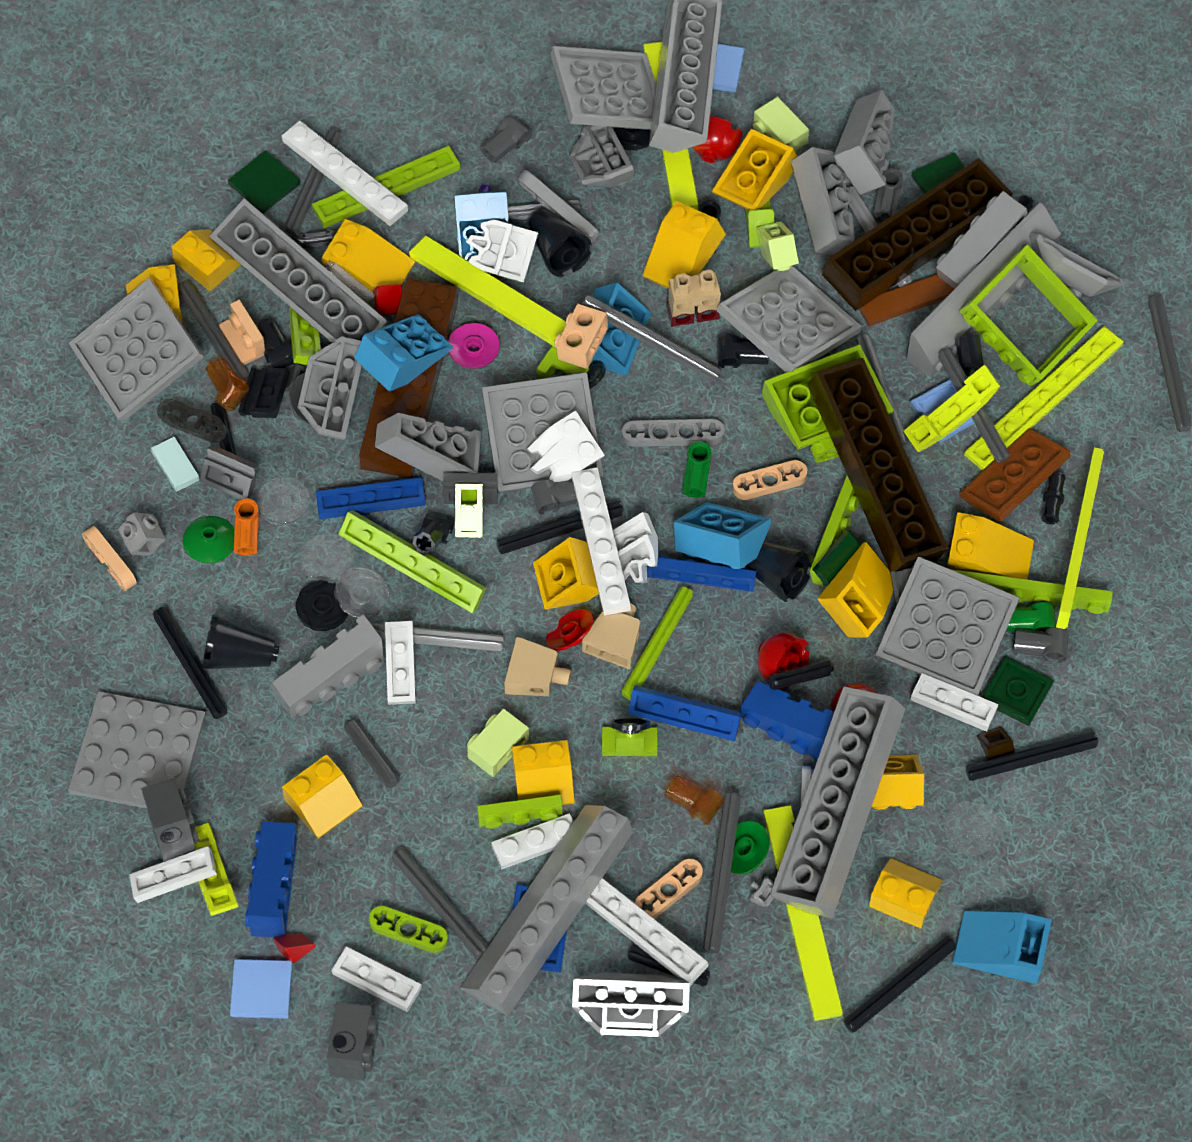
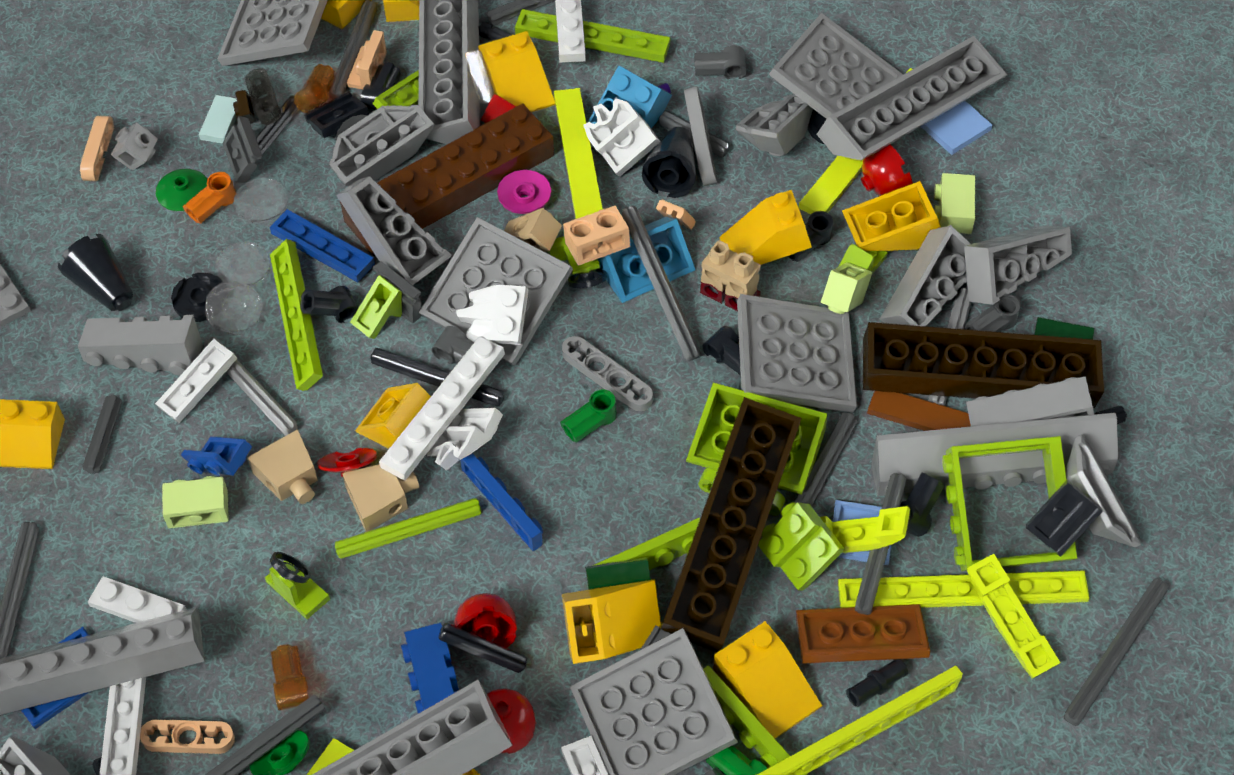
camera: 45 degrees right, 5 degrees down
(190, 440) = (243, 106): none -> dark brown plate
(190, 663) = (55, 279): black axle -> none
(401, 351) = (450, 147): dark azure slope -> none
(481, 698) = (218, 456): none -> blue bracket
(519, 811) = (148, 570): lime plate -> none
(524, 365) = (535, 228): none -> tan brick
(543, 771) = (198, 556): yellow slope -> none
(605, 279) = (673, 211): none -> light nougat tile
(684, 713) = (361, 602): blue plate -> none
(721, 534) = (543, 478): dark azure slope -> none
(775, 471) = (667, 472): light nougat beam -> none
(782, 569) = (564, 545): black cone -> none
(928, 445) = (800, 544): none -> lime plate
(1075, 298) = (1063, 518): none -> black plate
(1092, 392) = (1010, 617): none -> neon yellow slope

